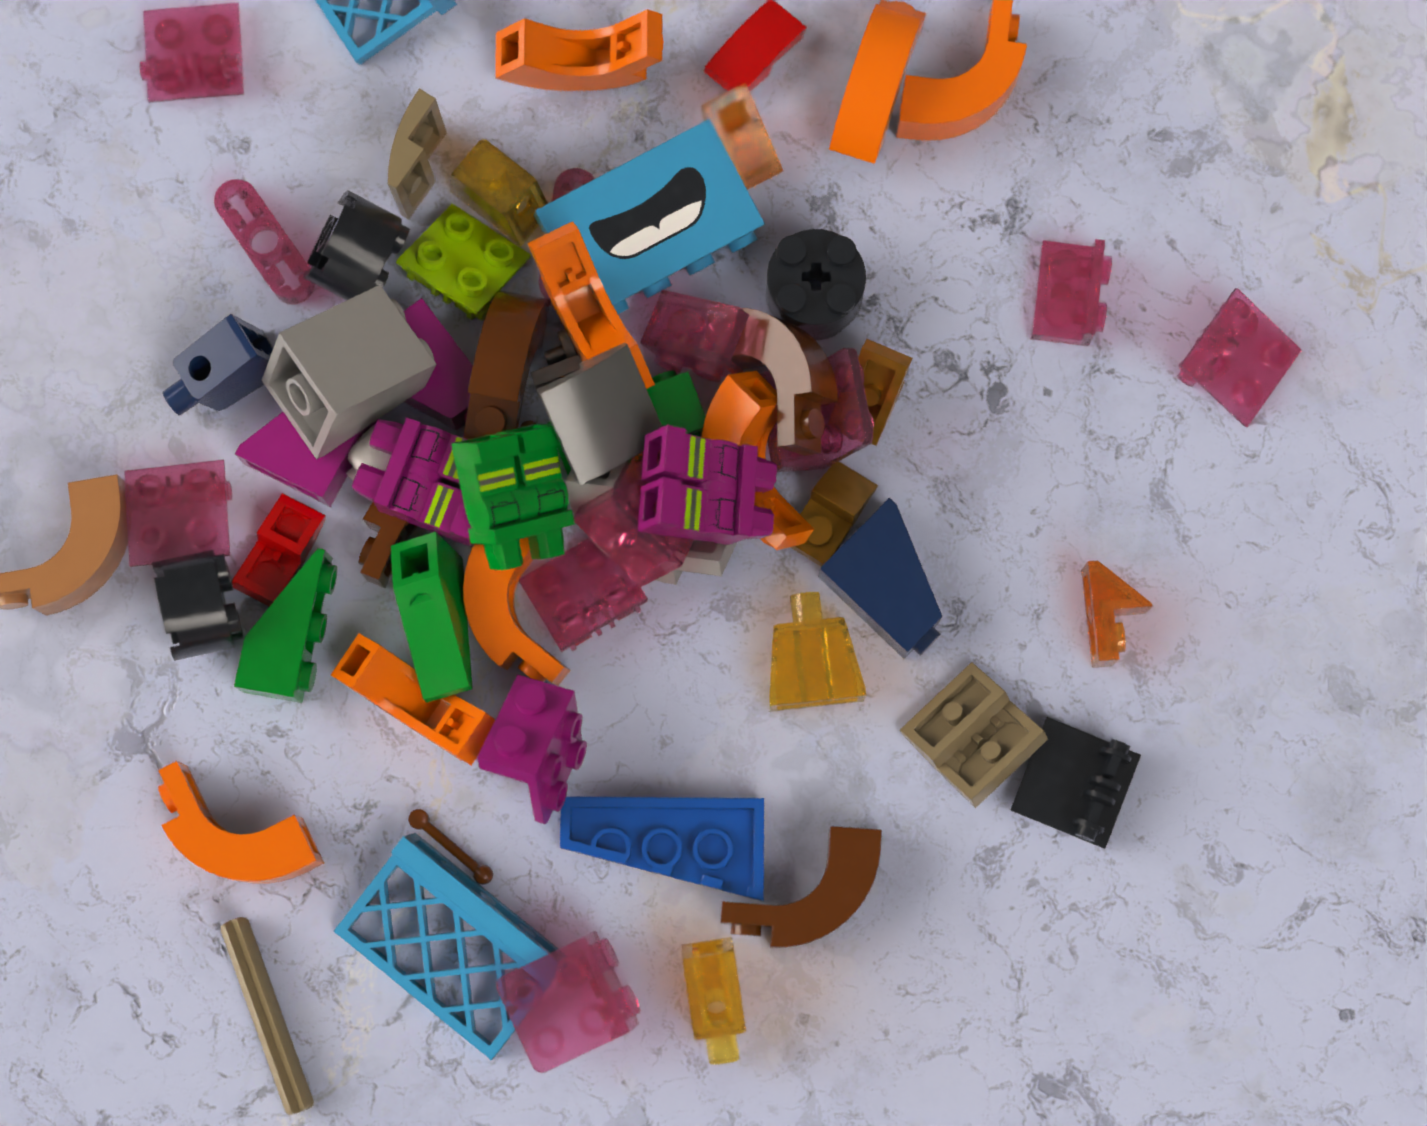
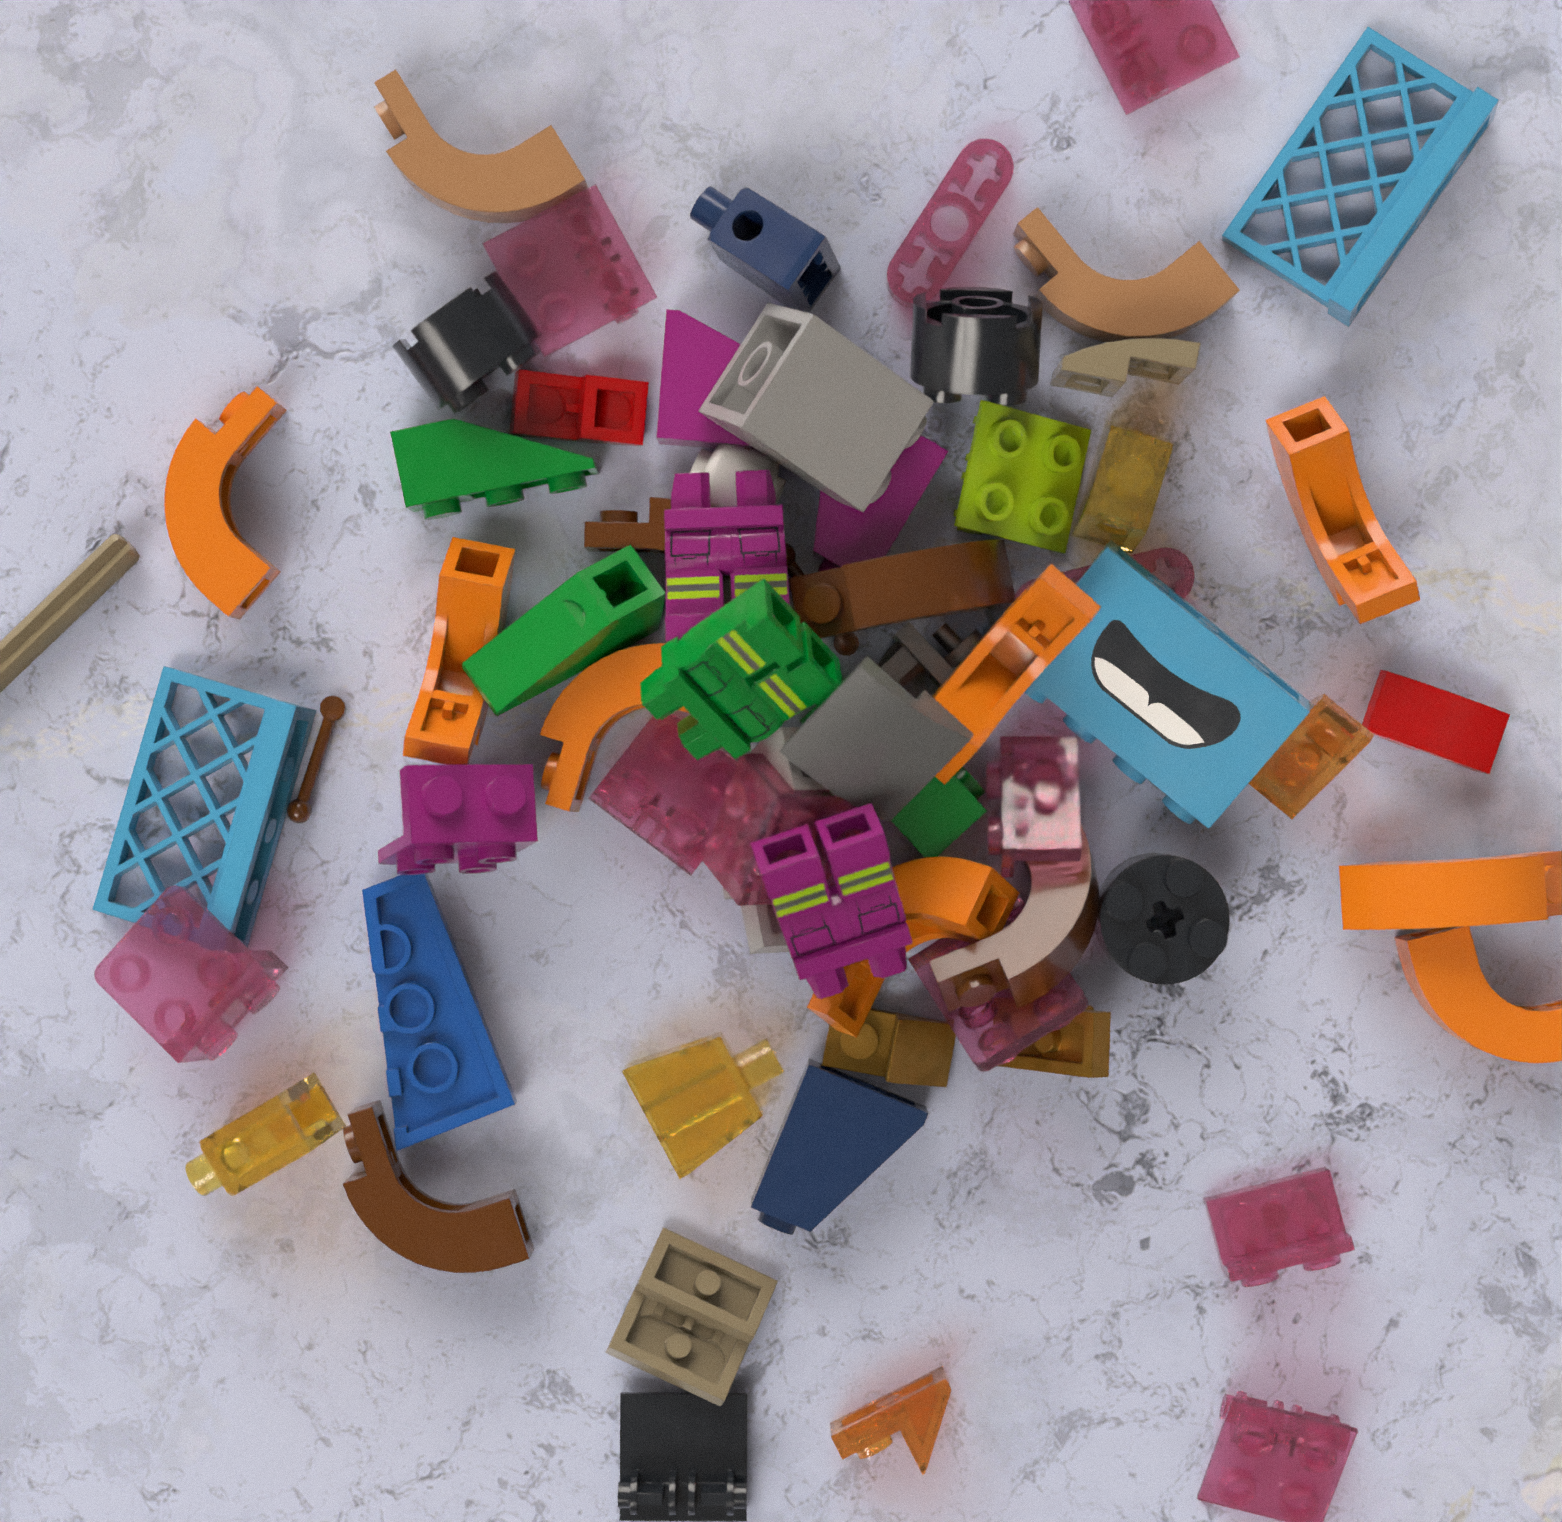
camera: 65 degrees right, 10 degrees up
(364, 160) = (1117, 308): none -> medium nougat arch

